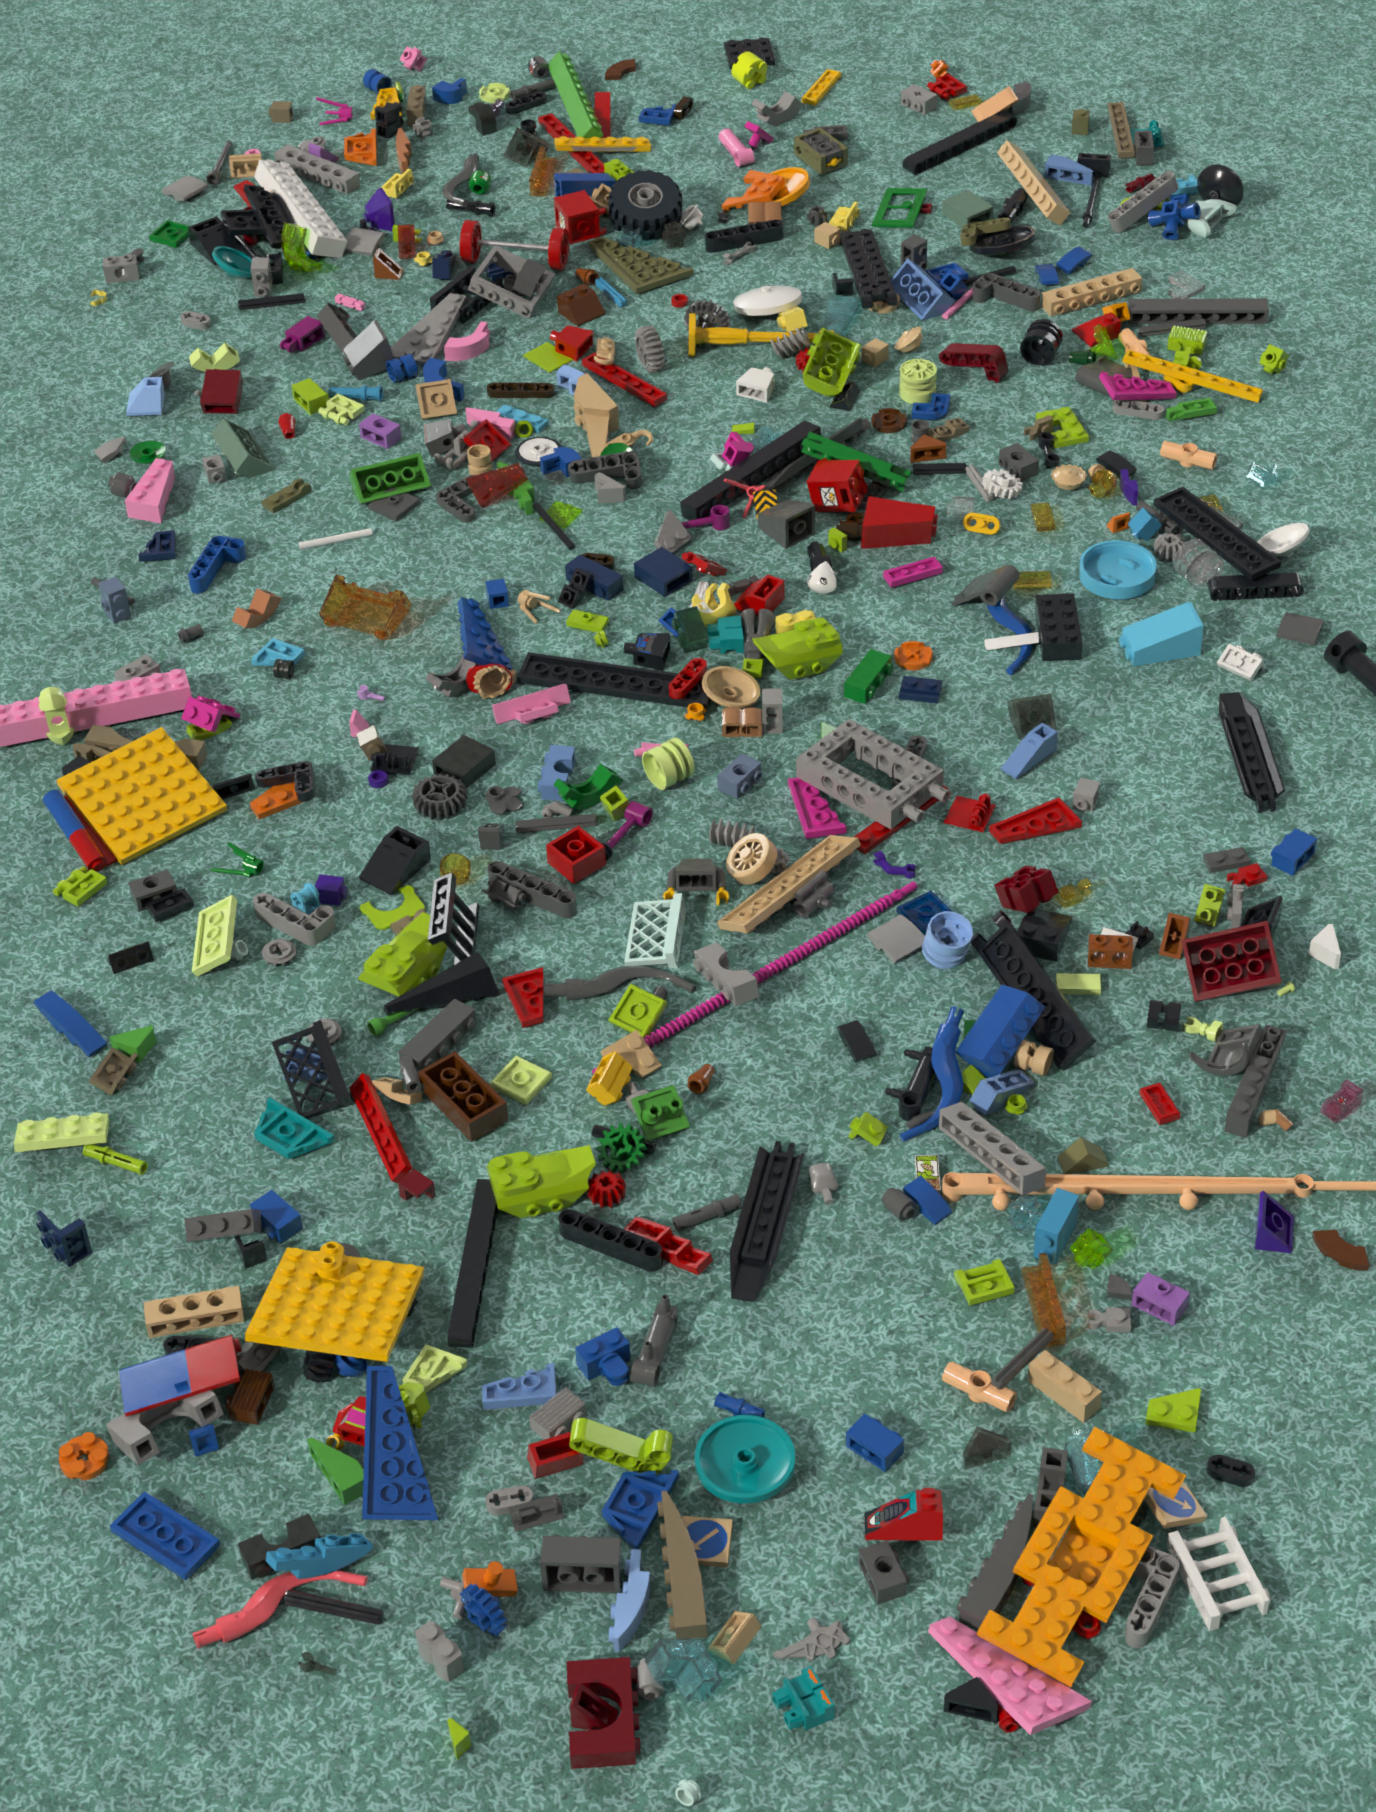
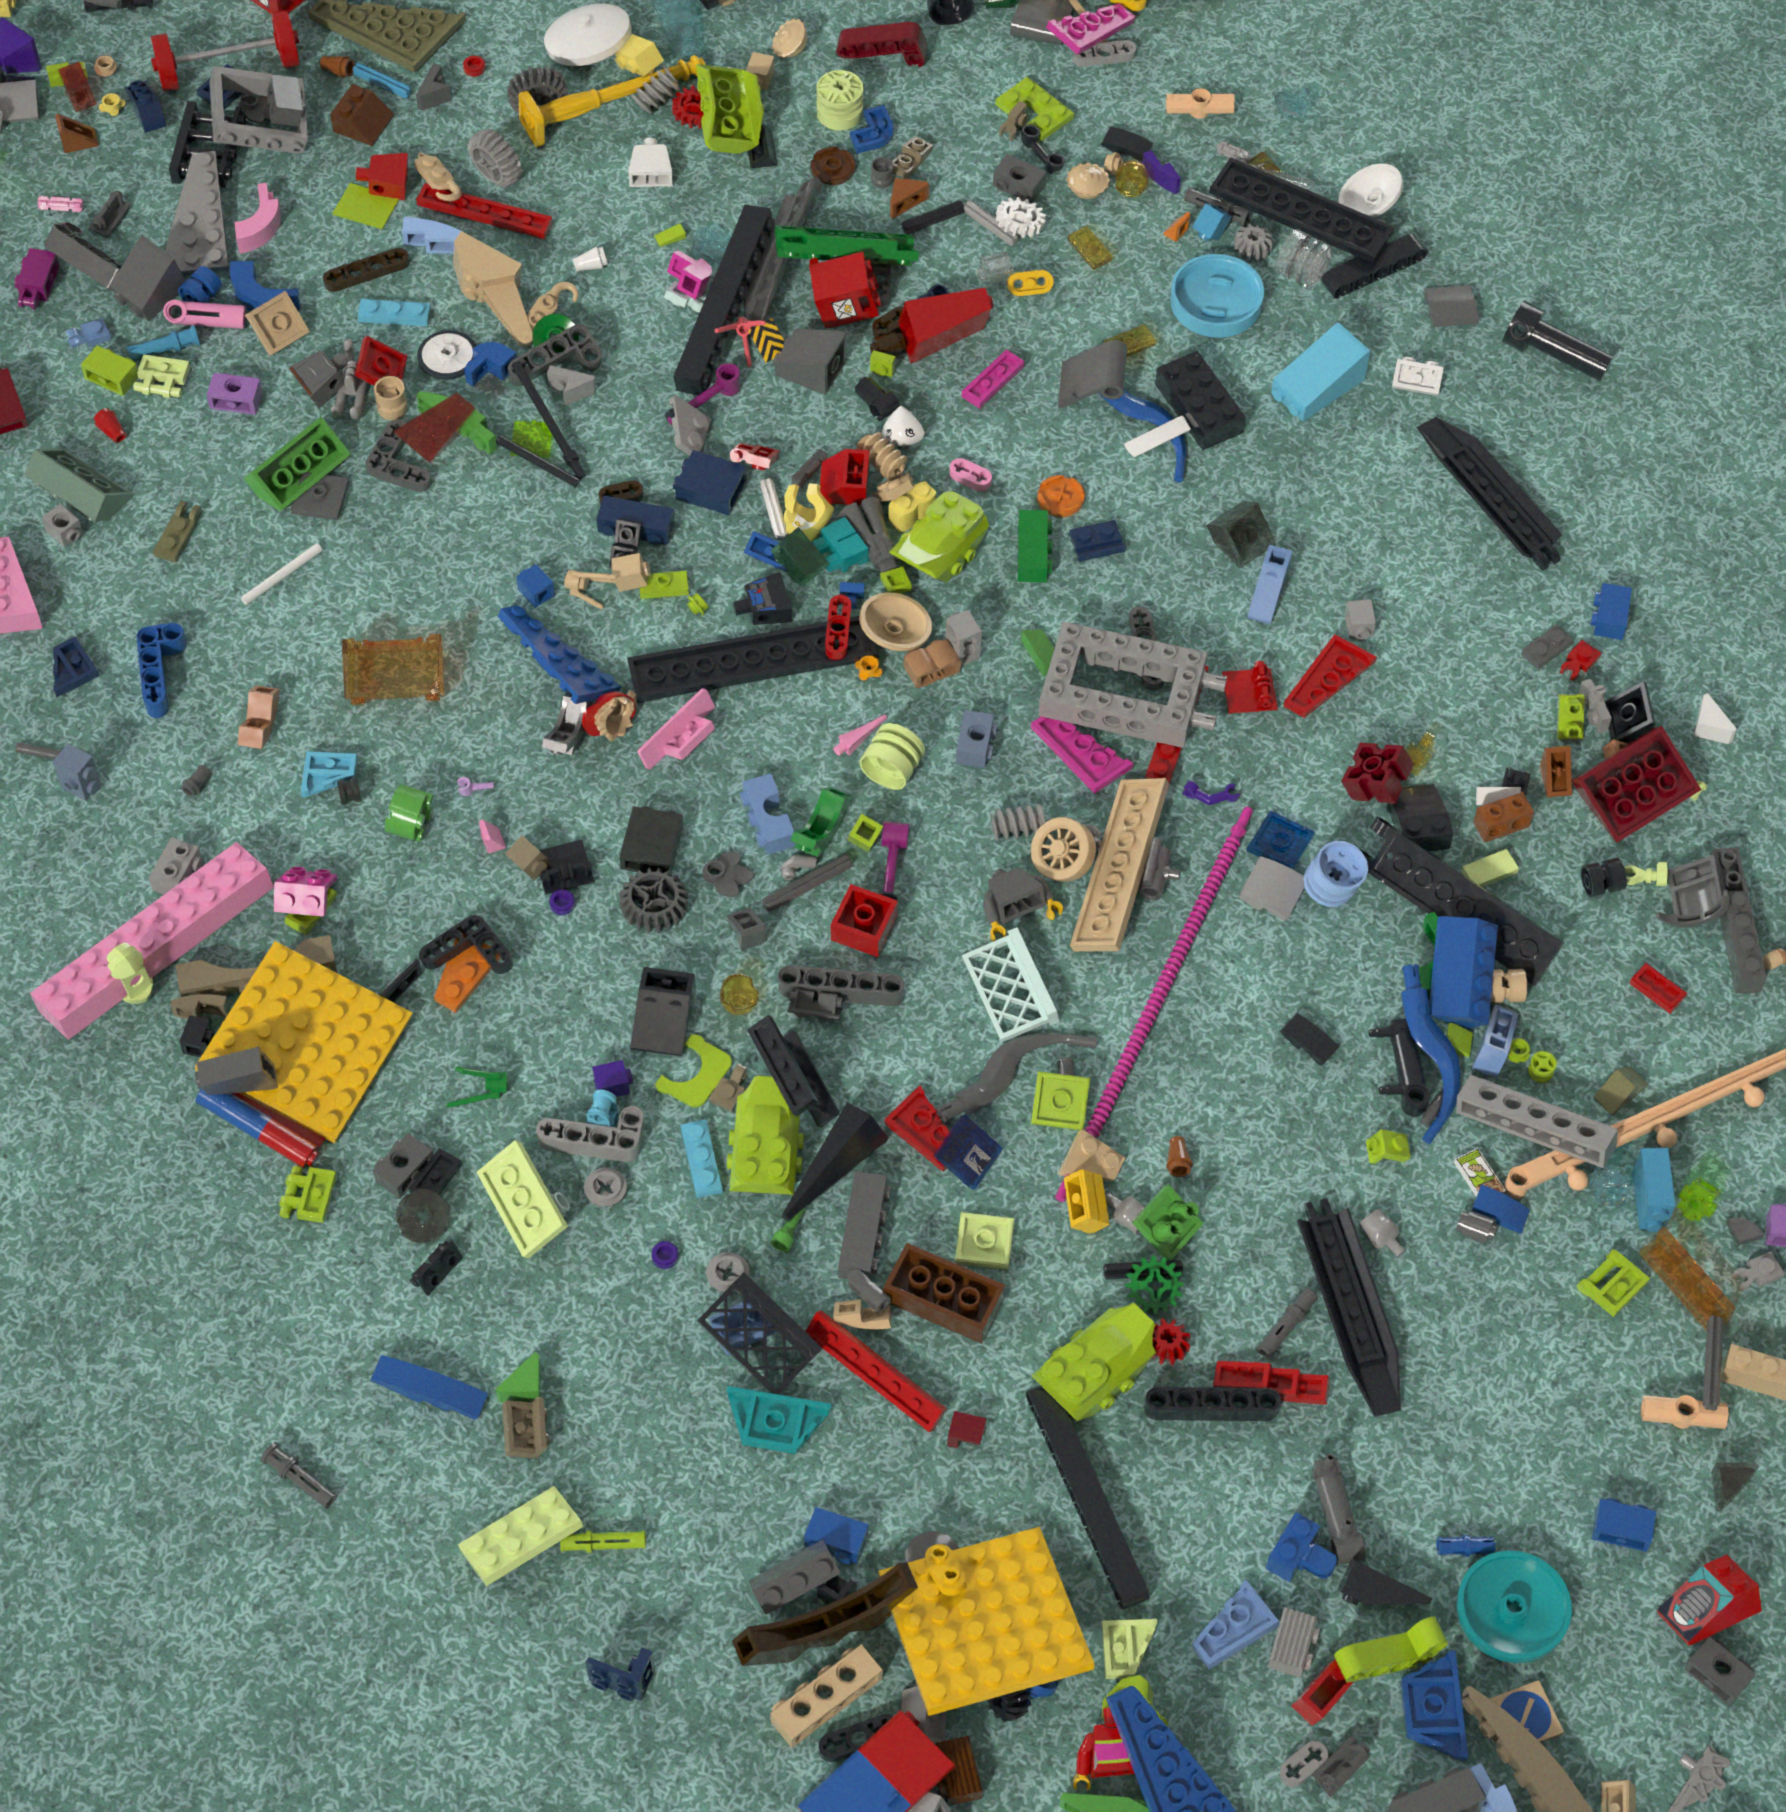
camera: 30 degrees left, 15 degrees up
(76, 787) = (237, 1073): none -> dark grey slope
(153, 922) = (438, 1213): none -> clear smoke plate
(221, 1265) = (826, 1626): none -> dark brown arch
(289, 1007) = (664, 1255): none -> dark purple tile
(310, 690) = (408, 812): none -> bright green brick
(317, 374) = (90, 333): none -> medium blue plate
(361, 950) = (701, 1158): none -> medium azure plate
(382, 313) = (110, 214): none -> dark grey hinge
(391, 382) = (230, 315): none -> bright pink piece
(503, 425) = (360, 328): bright pink slope -> none
(520, 425) = (414, 323): lime piece -> none
(546, 1018) = (968, 1152): none -> clear blue tile
(565, 603) = (630, 572): none -> tan brick
(577, 529) = (569, 455): none -> black bar
(639, 304) = (433, 90): none -> dark grey slope
(644, 1403) = (1373, 1587): none -> black slope
(677, 425) = (591, 260): none -> white cone
(714, 660) = (852, 591): none -> blue tile
(736, 985) = (1155, 1027): light grey arch -> none
(791, 608) = (894, 489): none -> tan wing
(797, 591) = (883, 455): none -> tan piece
(858, 621) = (970, 474): none -> bright pink beam
(1030, 1116) = (1539, 1061): none -> lime wheel
(1191, 409) = (1165, 34): bright green hinge -> none
(1193, 489) = (1229, 150): none -> light grey axle

